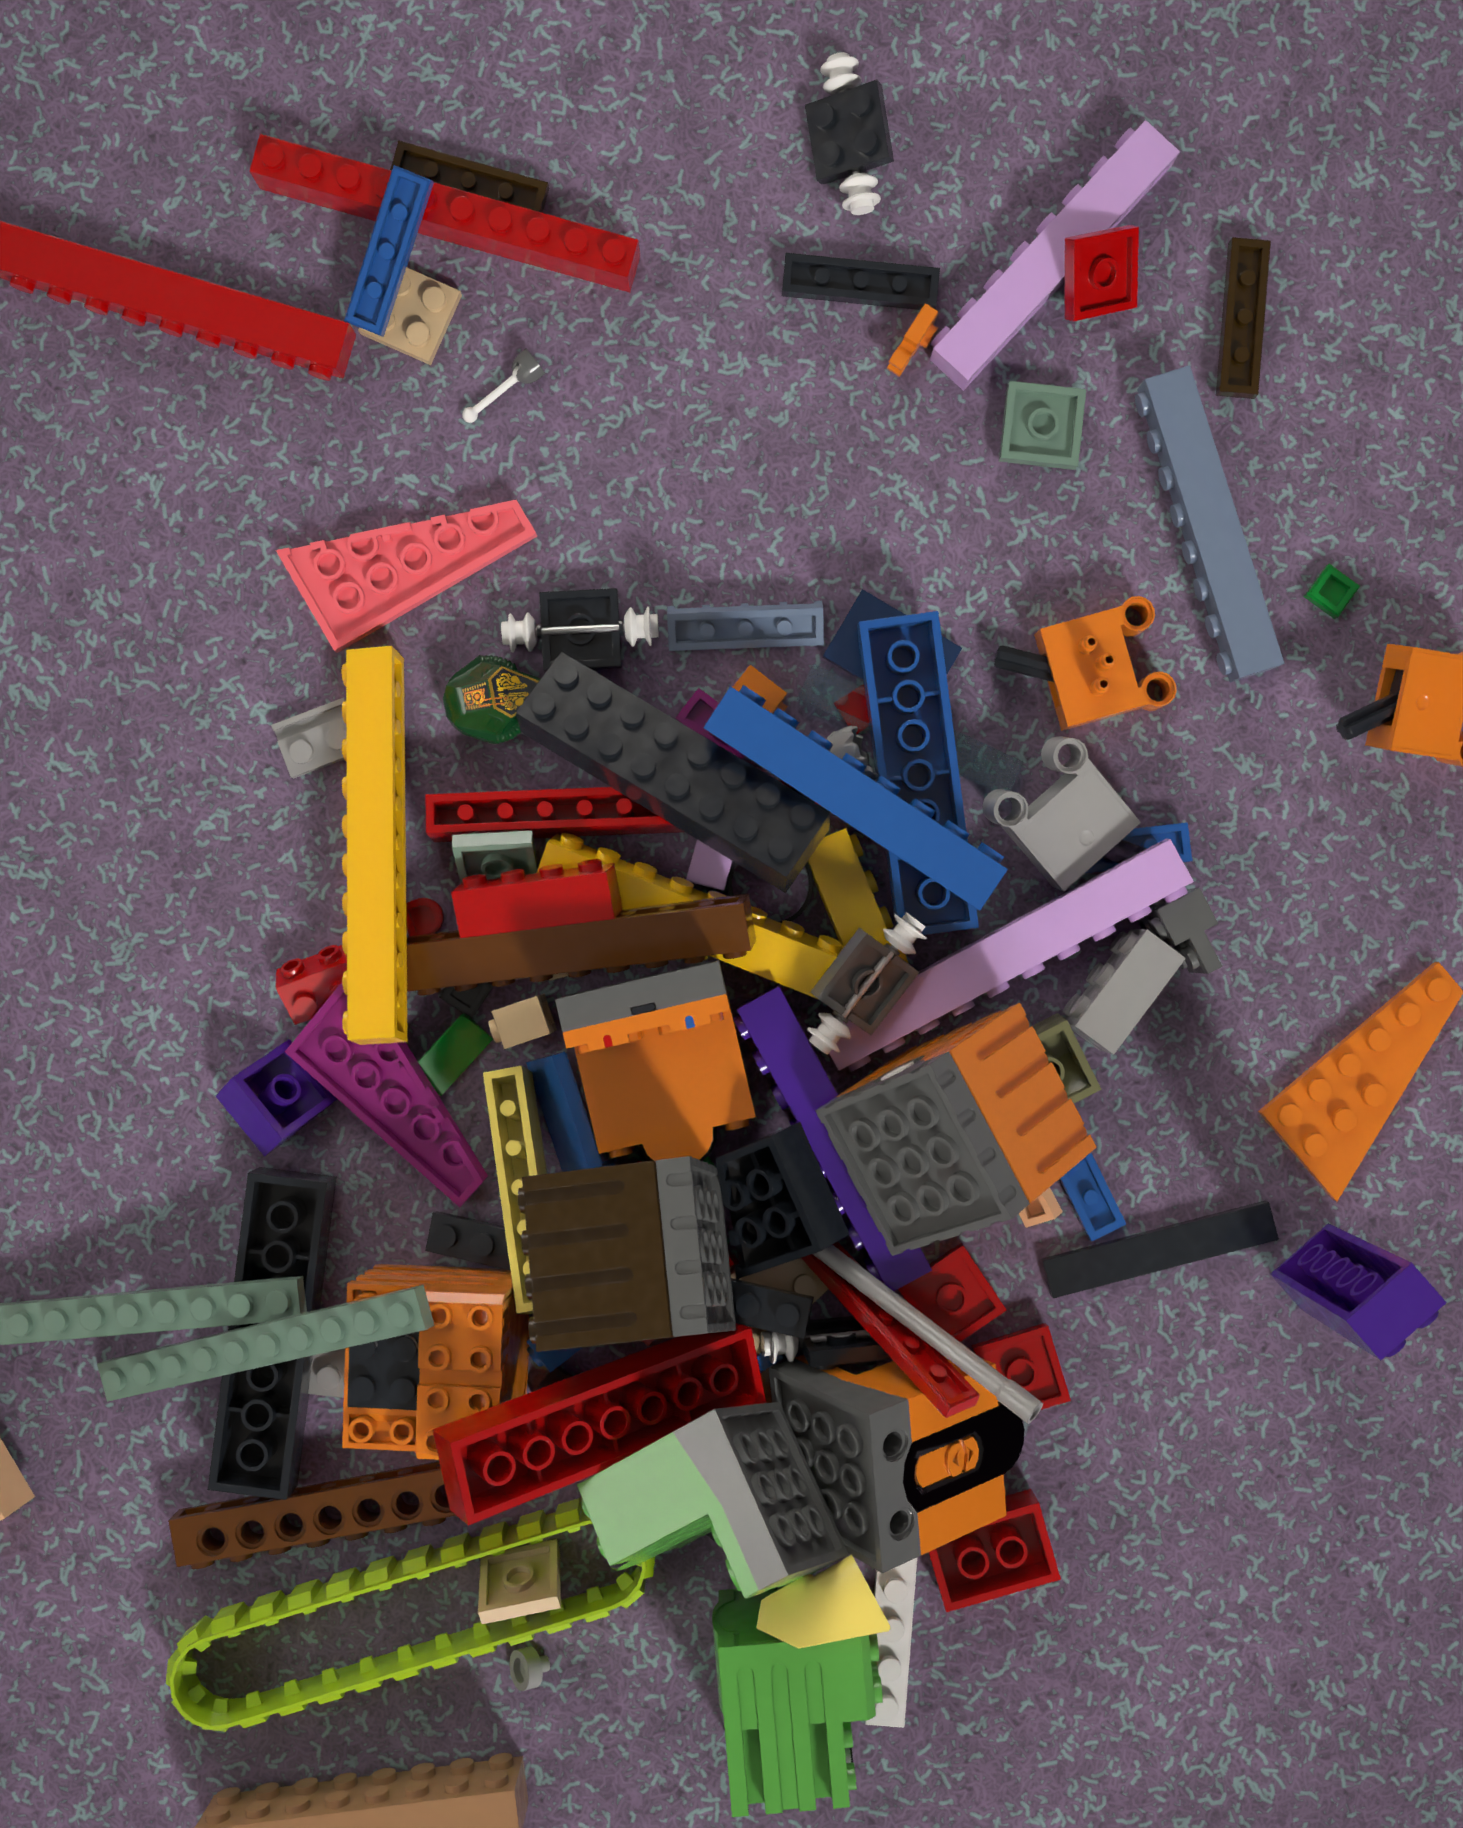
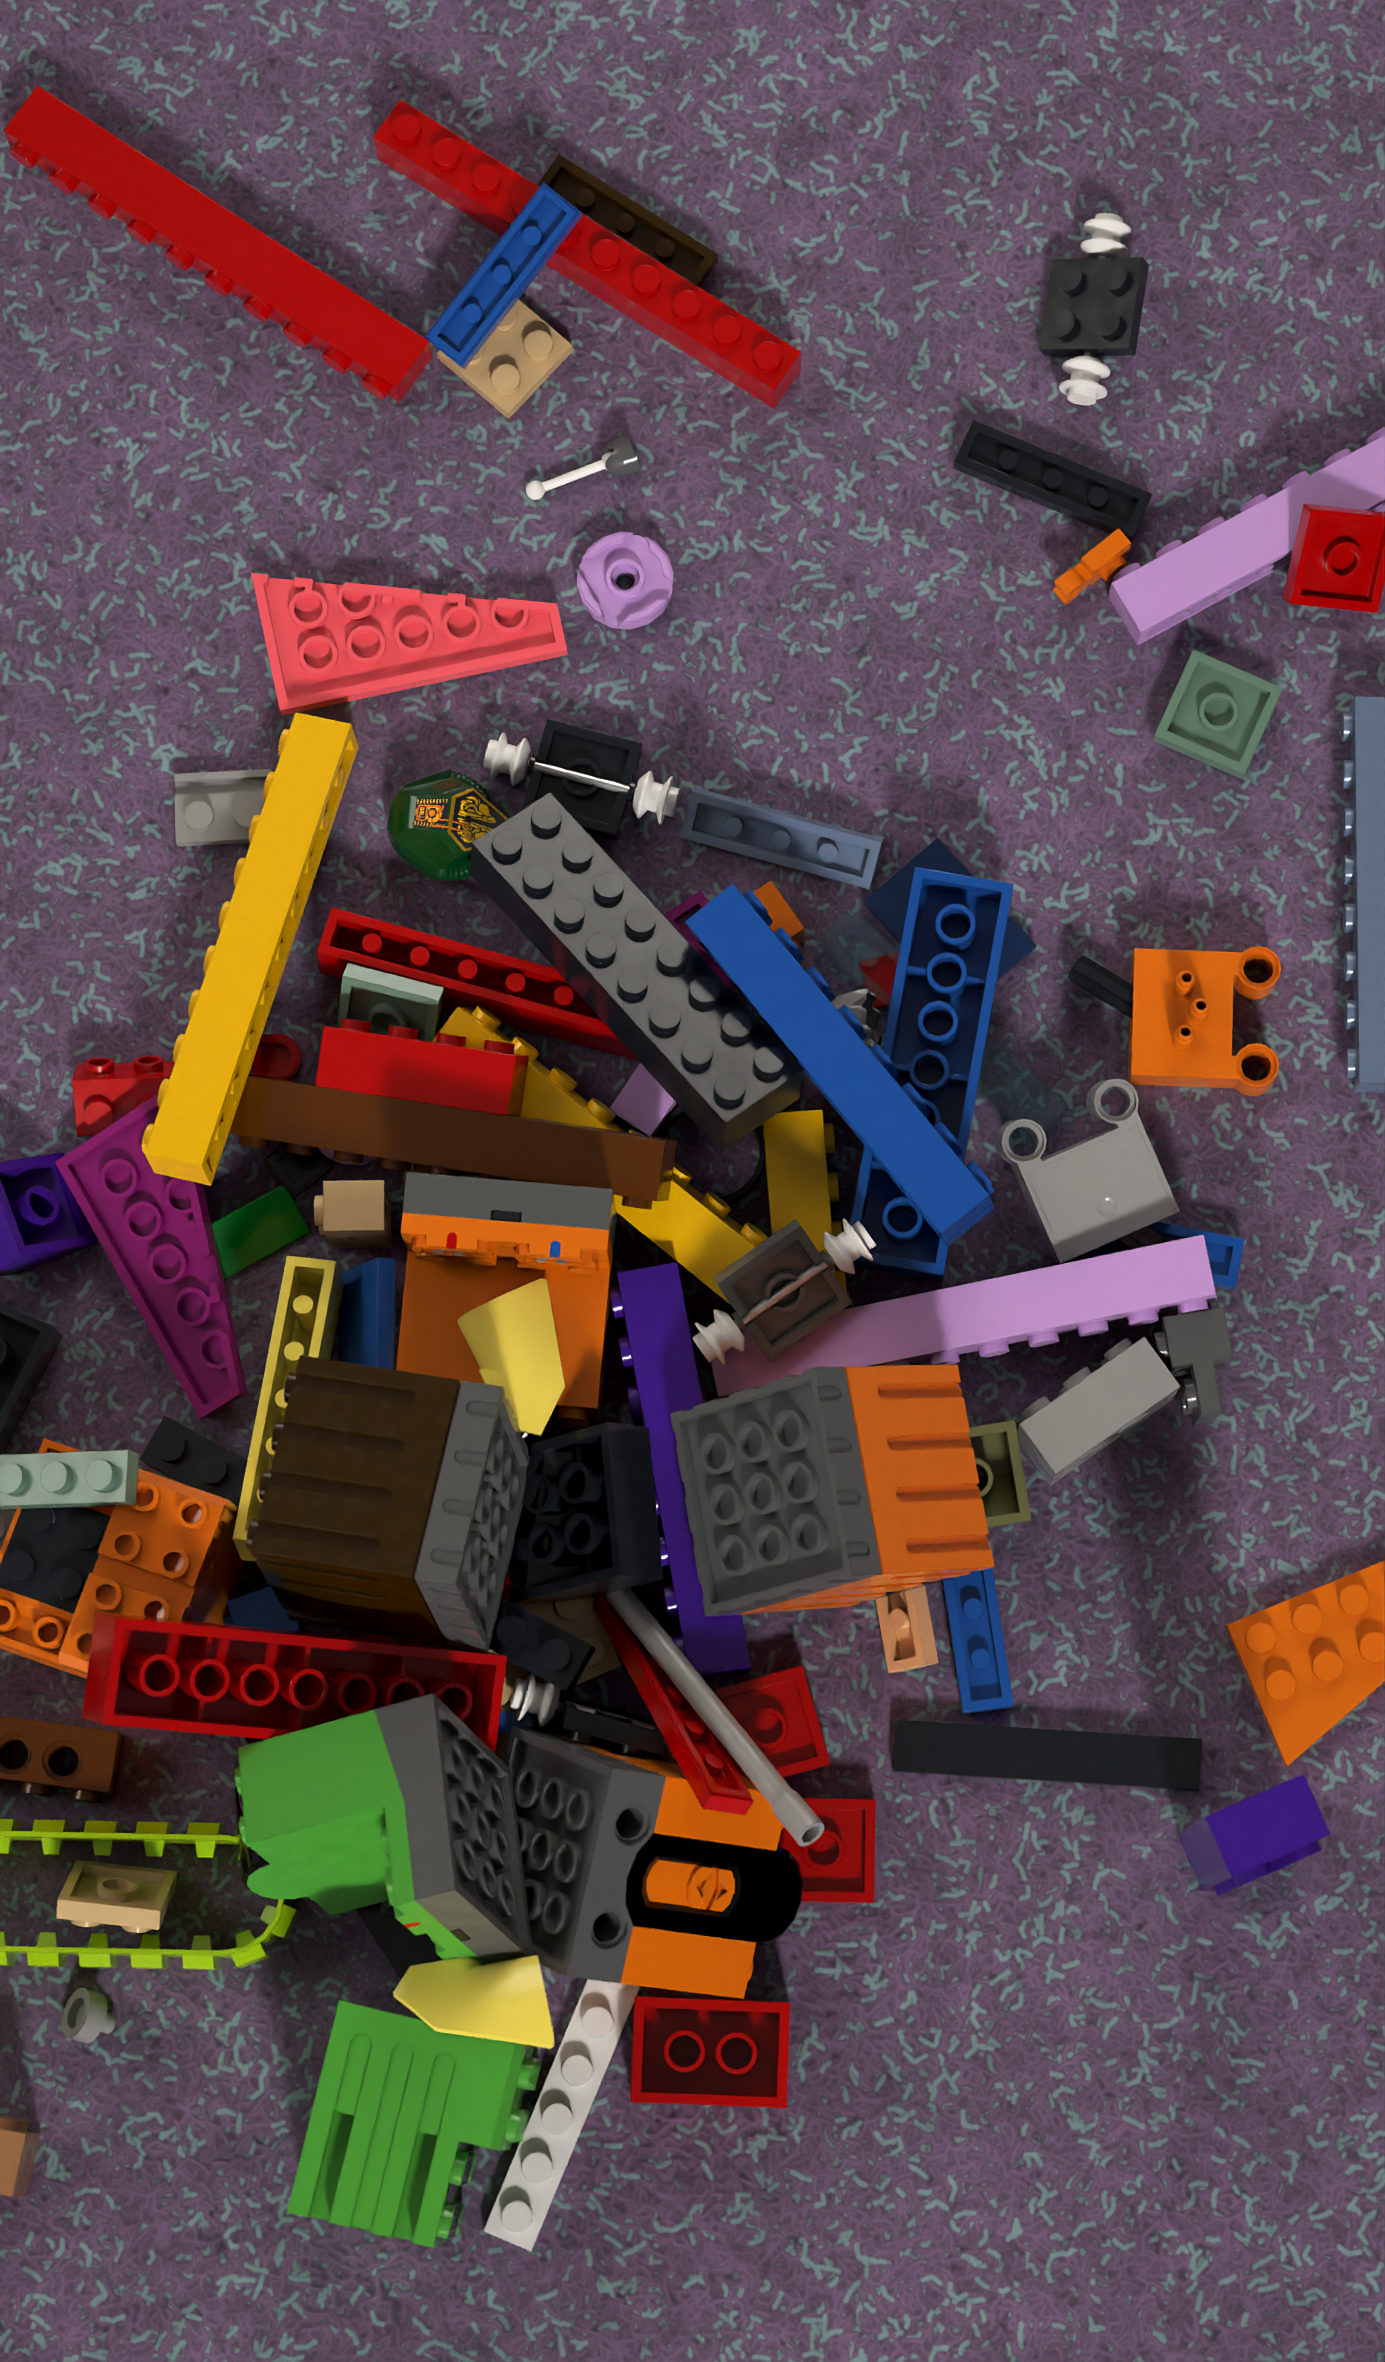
camera: 30 degrees right, 10 degrees down
(562, 444) = (621, 556): none -> lavender plate
(685, 1101) = (519, 1351): none -> light yellow panel

